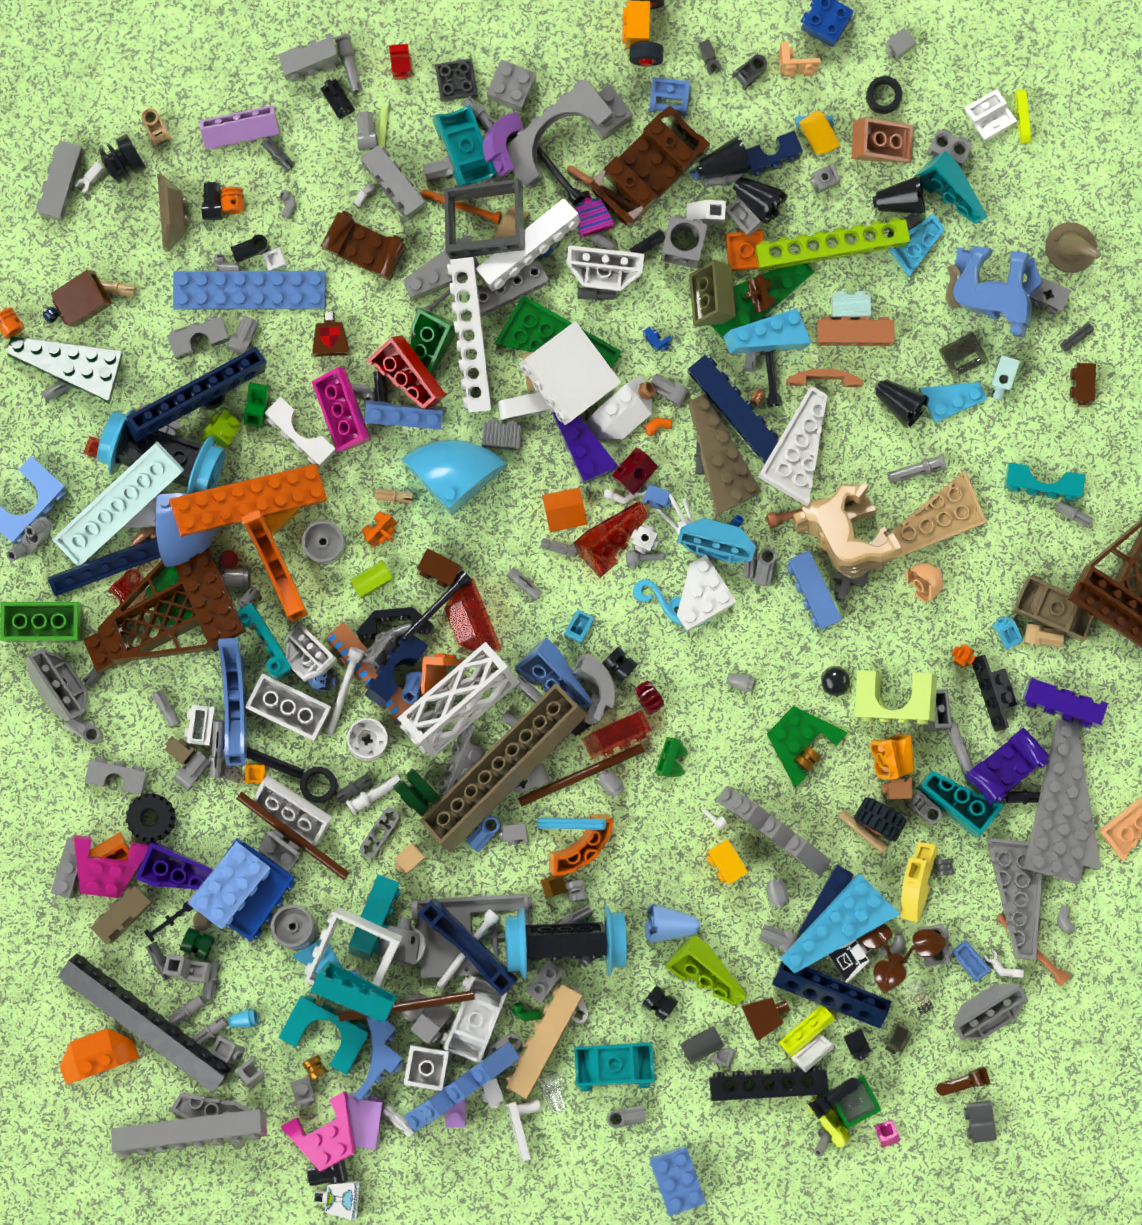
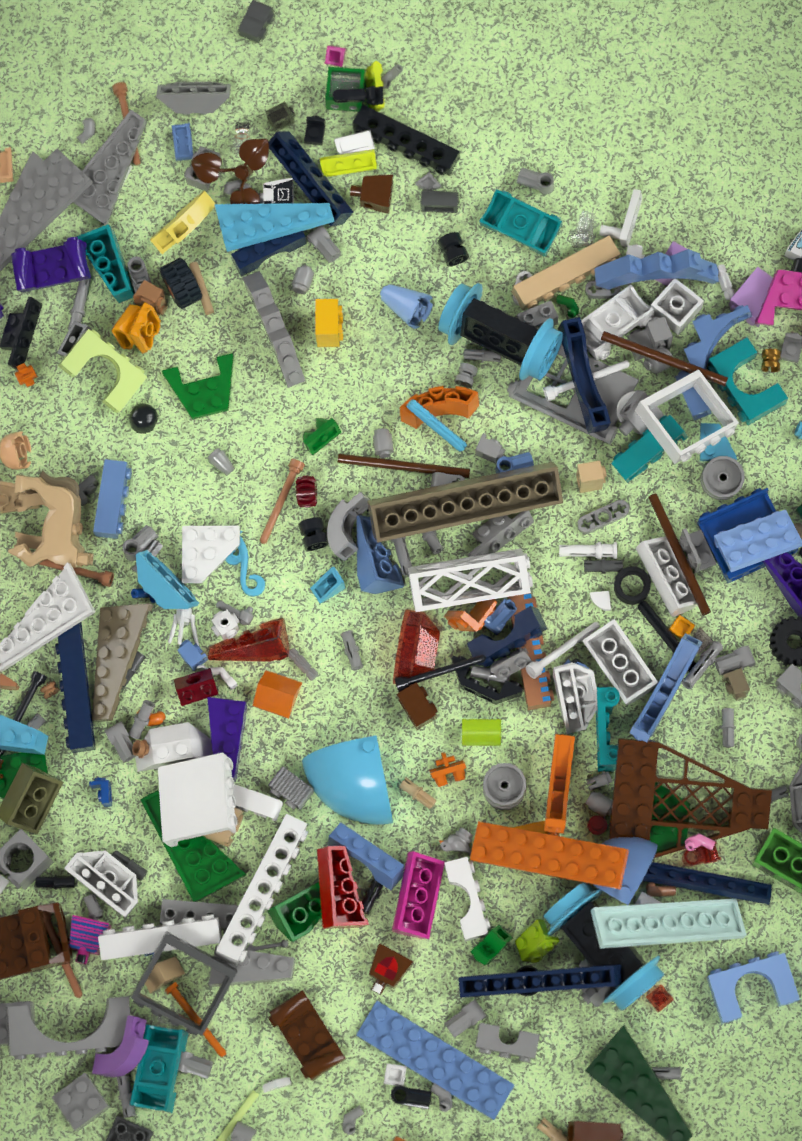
camera: 145 degrees left, 10 degrees down
(34, 536) = (766, 945): light grey connector -> none
(134, 592) = (698, 840): none -> bright pink arm
(200, 725) = (704, 694): white window -> none
(335, 475) = (457, 841): none -> light grey animal
(338, 757) = (601, 600): none -> white tile
(353, 992) = (702, 385): teal wedge -> none
(362, 729) = (567, 584): white wheel -> none
(364, 390) = (386, 901): light grey arm -> none
(393, 182) = (244, 1075): light grey wedge -> none
(414, 795) = (547, 527): dark green wheel -> none
(553, 885) = (484, 390): pearl gold panel -> none
(574, 196) = (90, 963): black piece -> none
(617, 735) = (353, 476): clear red wedge -> none
(662, 416) = (141, 719): none -> light grey pin
(673, 714) = (295, 468): none -> nougat piece
(677, 1180) = (524, 110): medium blue brick -> none
(701, 964) = (399, 259): lime wedge -> none
(719, 823) = (313, 361): white hand -> none
(808, 758) = (207, 368): pearl gold wheel -> none
(944, 867) = (154, 222): dark grey wheel -> none
(976, 1078) = (237, 54): reddish brown piece -> none
(1003, 971) = (153, 113): white arm -> none
(1022, 797) = (52, 238): black axle -> none

